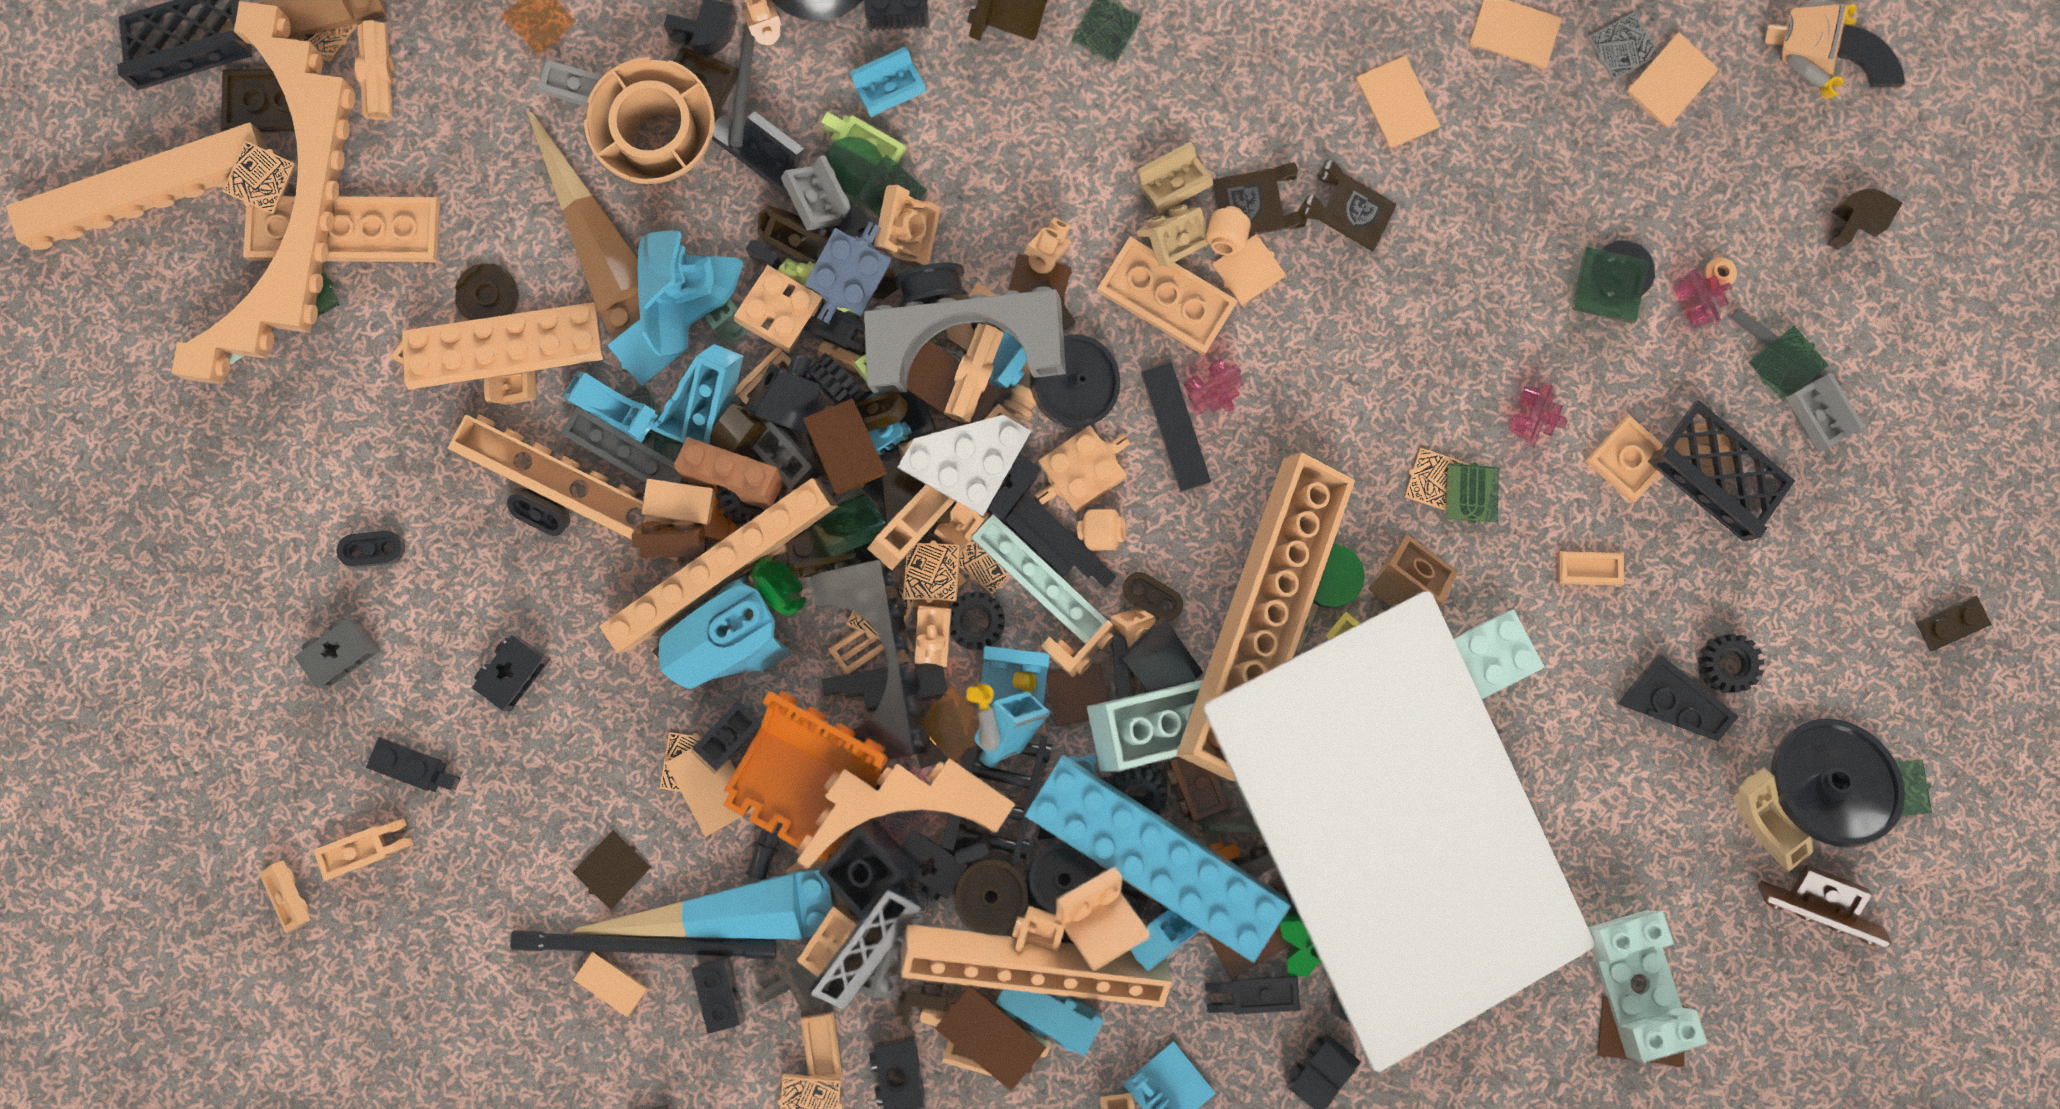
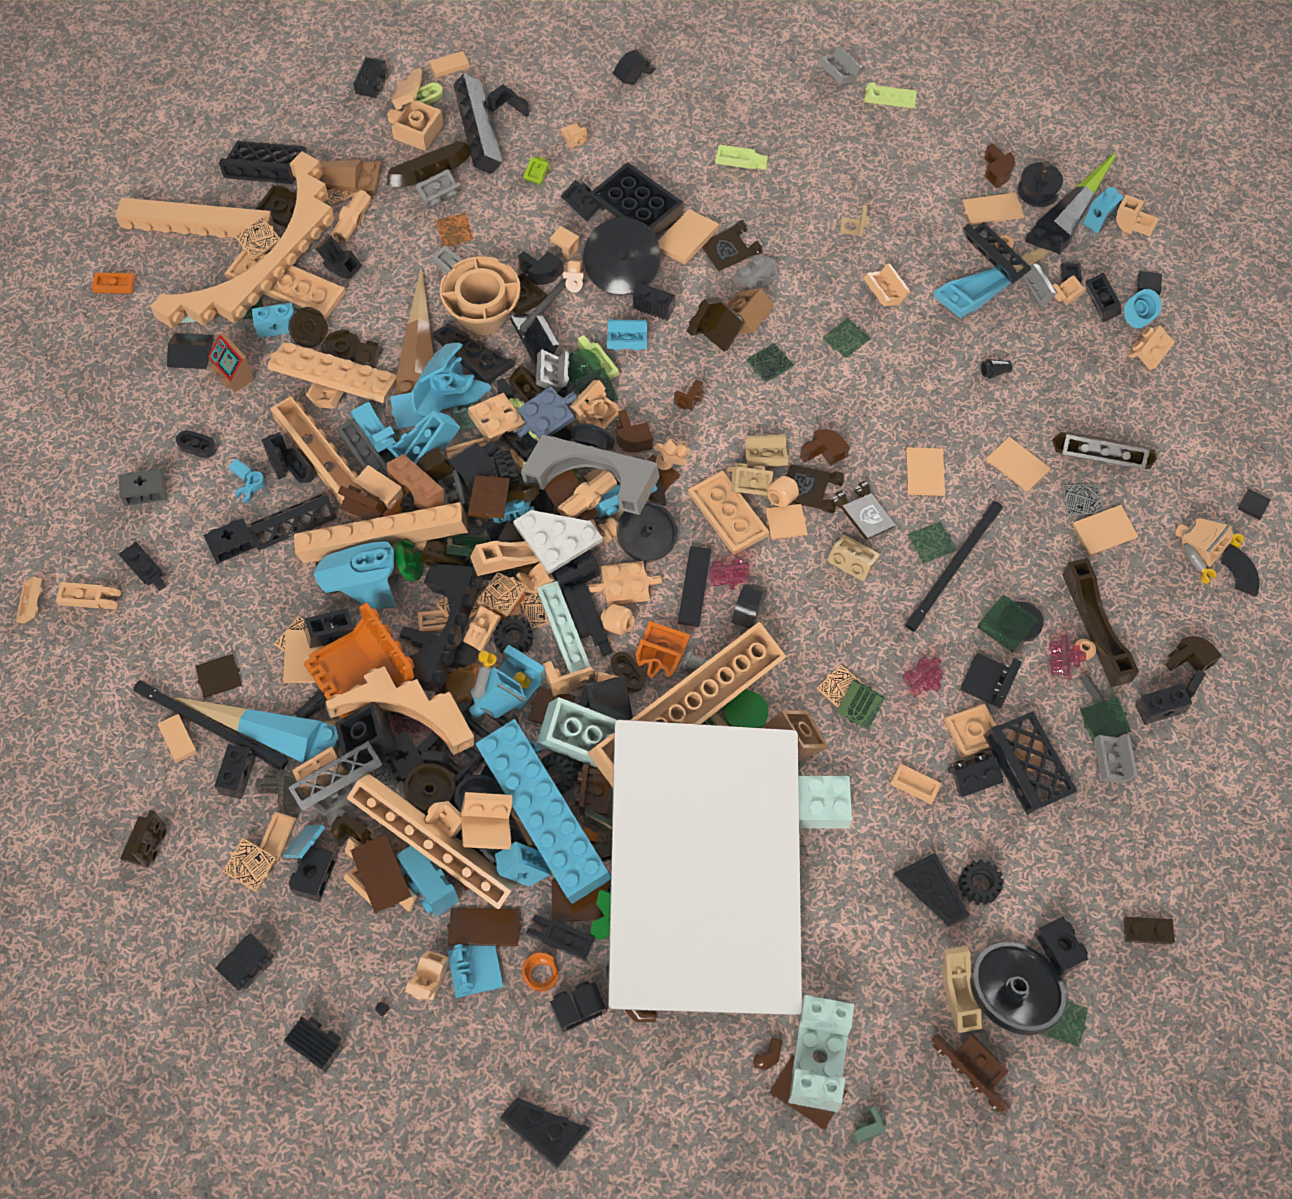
camera: 30 degrees right, 20 degrees down
(85, 350) = (113, 283): none -> orange plate
(267, 405) = (189, 351): none -> black slope
(344, 404) = (230, 364): none -> slope
(365, 299) = (272, 319): none -> medium azure brick
(399, 156) = (336, 260): none -> black brick
(421, 289) = (307, 327): none -> dark brown tile
(489, 564) = (254, 479): none -> medium azure bar
(491, 510) = (275, 449): none -> black bracket
(533, 288) = (367, 353): none -> dark brown bracket
(568, 592) = (287, 514): none -> black fence
(702, 220) = (477, 358): none -> black wing
(865, 1043) = (303, 841): none -> medium azure piece
(980, 244) = (632, 438): none -> reddish brown brick
(1033, 133) = (689, 400): none -> reddish brown bracket
(1151, 1031) = (484, 927): none -> reddish brown piece
(1181, 543) = (661, 649): none -> orange plate
(1235, 541) = (693, 662): none -> light grey bush
(1253, 125) = (828, 444): none -> reddish brown brick
(1264, 1066) = (534, 960): none -> orange piece
(1265, 424) = (748, 605): none -> black brick
(1366, 282) = (853, 557): none -> tan bracket
(1455, 208) = (931, 542): none -> clear green piece
(1513, 135) = (920, 613): none -> black piece
(1581, 1015) = (770, 1057): none -> reddish brown arm
(1624, 377) = (990, 679): none -> black bracket
(1659, 518) = (976, 773): none -> black bracket
(1740, 1046) = (866, 1131): none -> sand green bracket
(1762, 267) = (1113, 655): none -> dark brown arch
(1844, 695) = (1061, 959): none -> black brick
(1854, 306) = (1163, 704): none -> black brick
(1879, 261) = (1195, 682): none -> black piece

